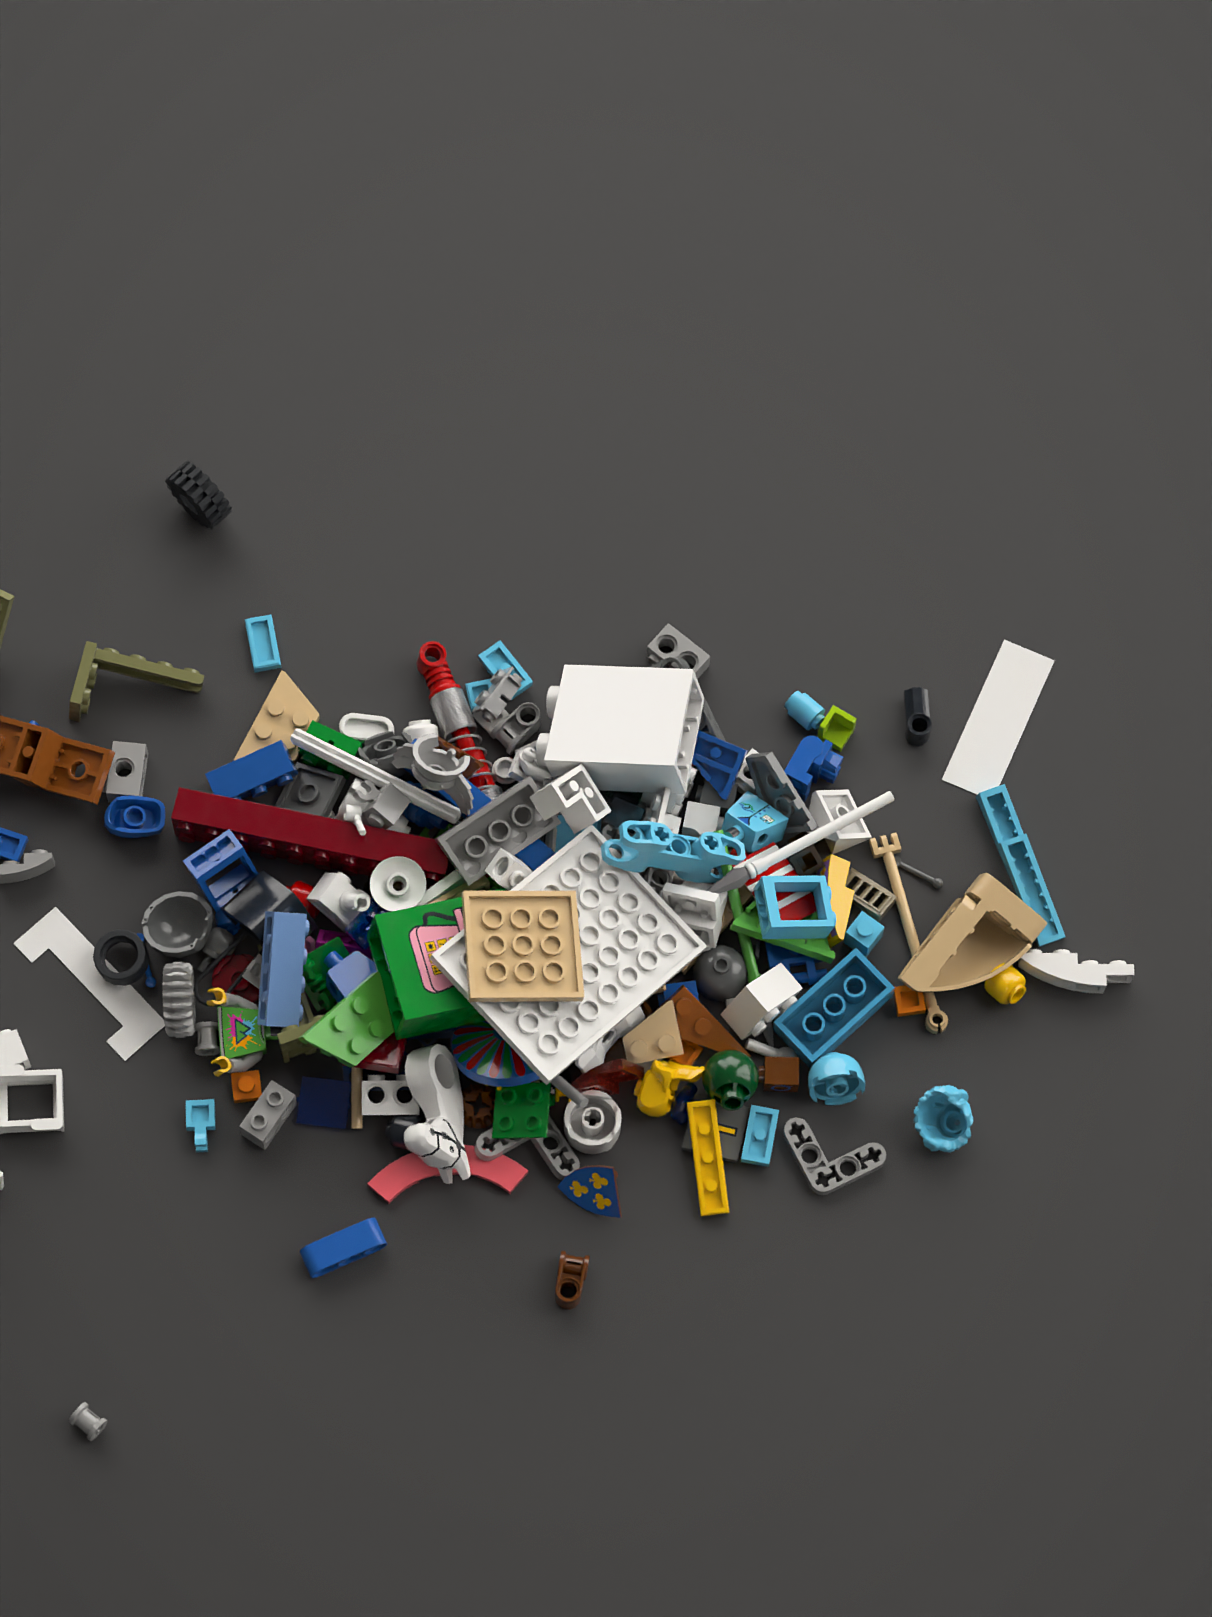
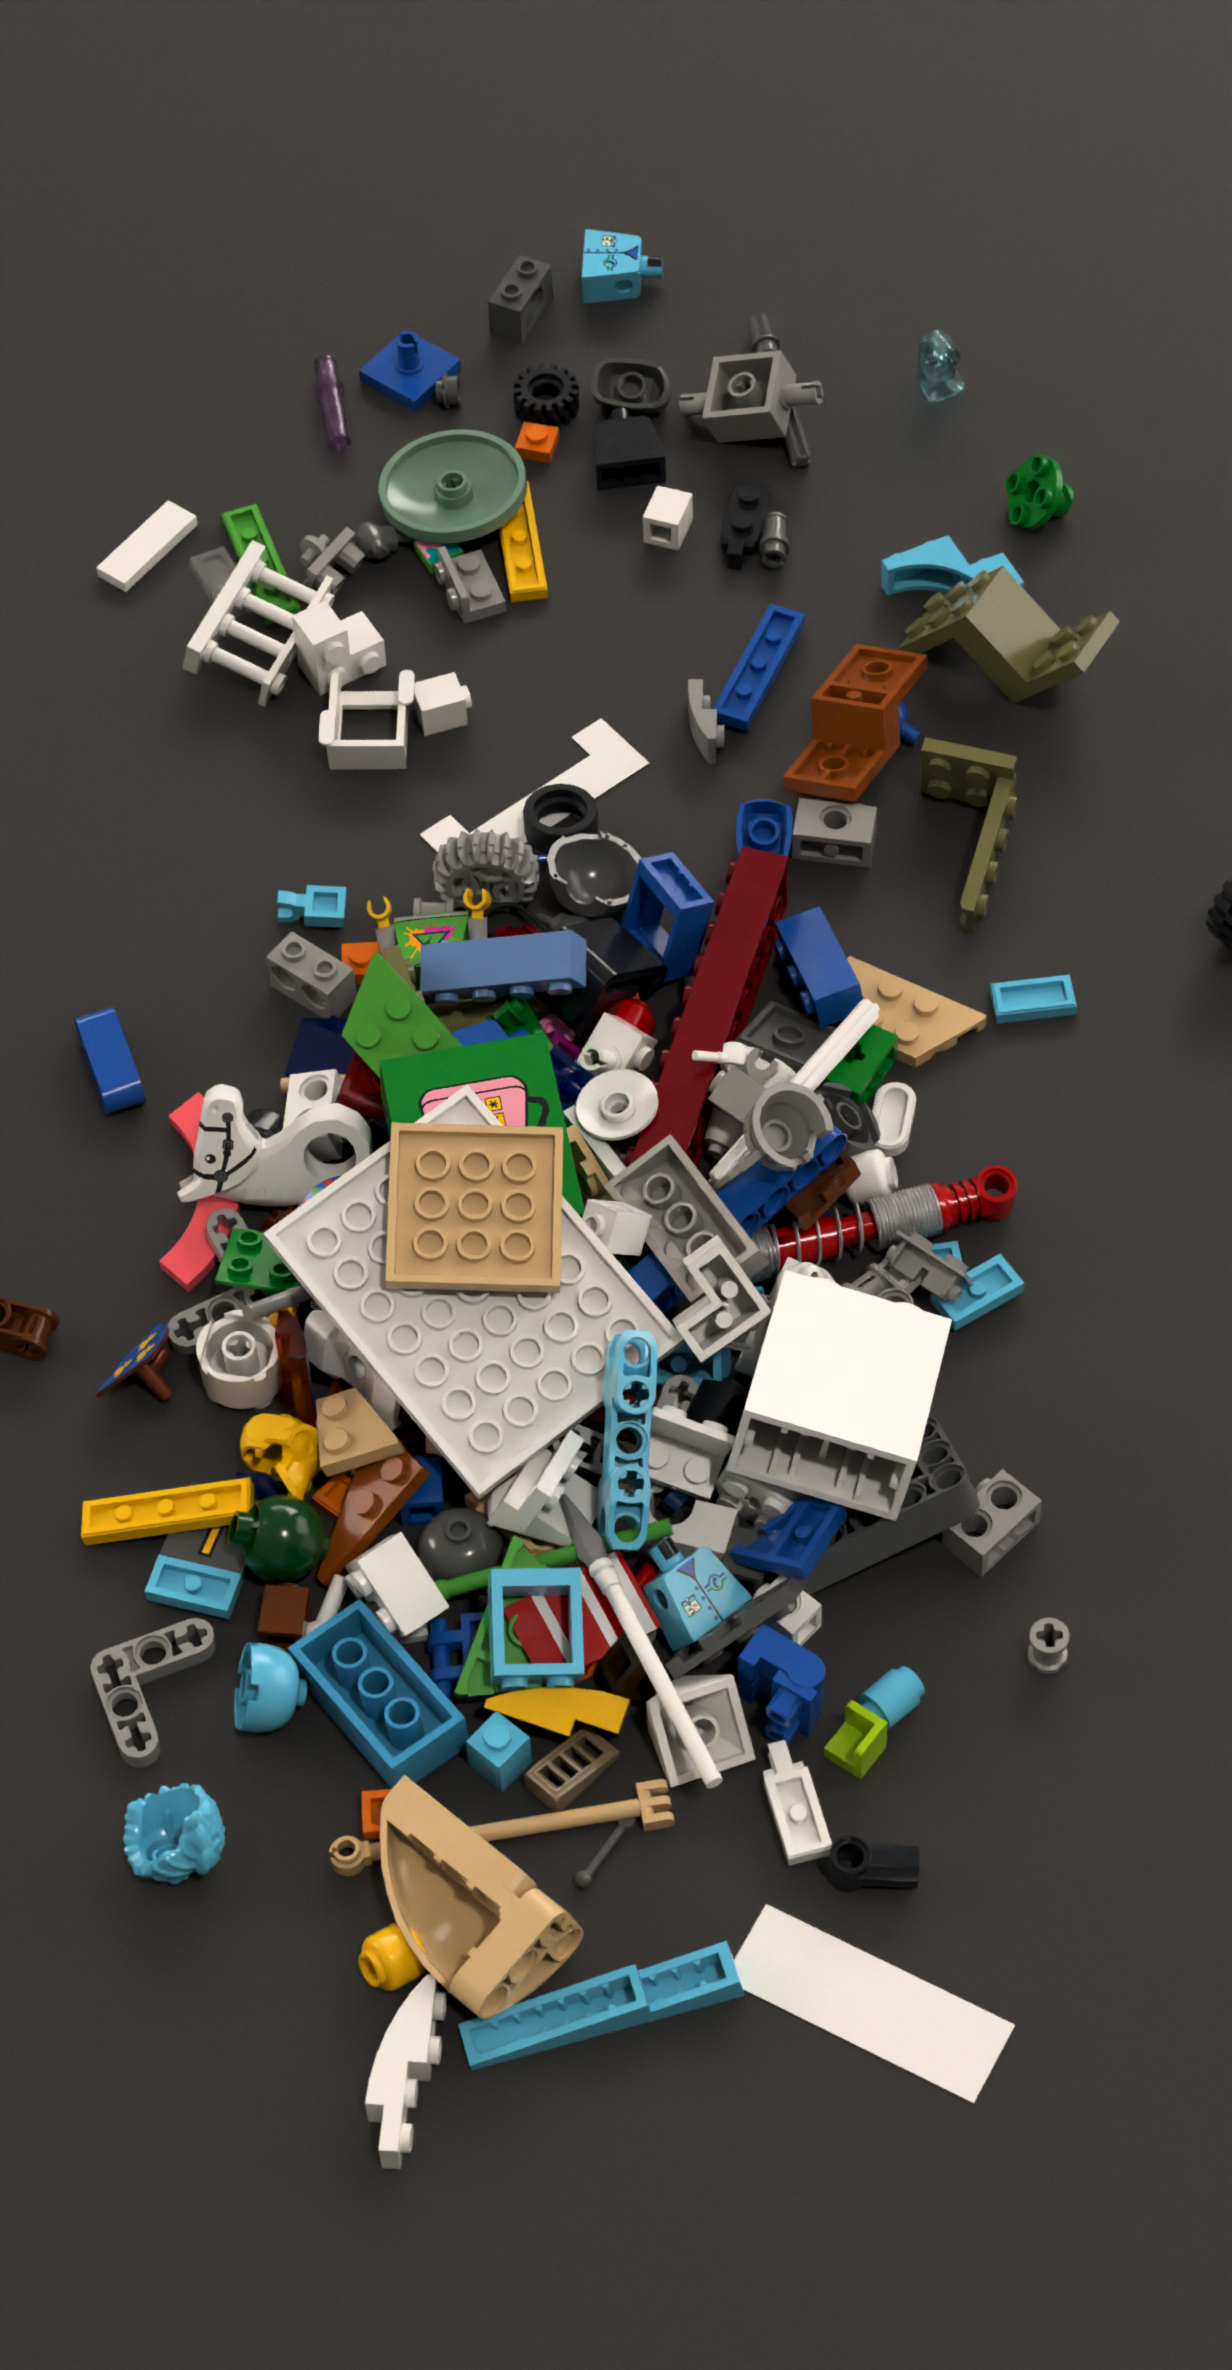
camera: 100 degrees right, 15 degrees down
(768, 618) = (1048, 1632): none -> light grey bush
(881, 762) = (795, 1807): none -> white hinge

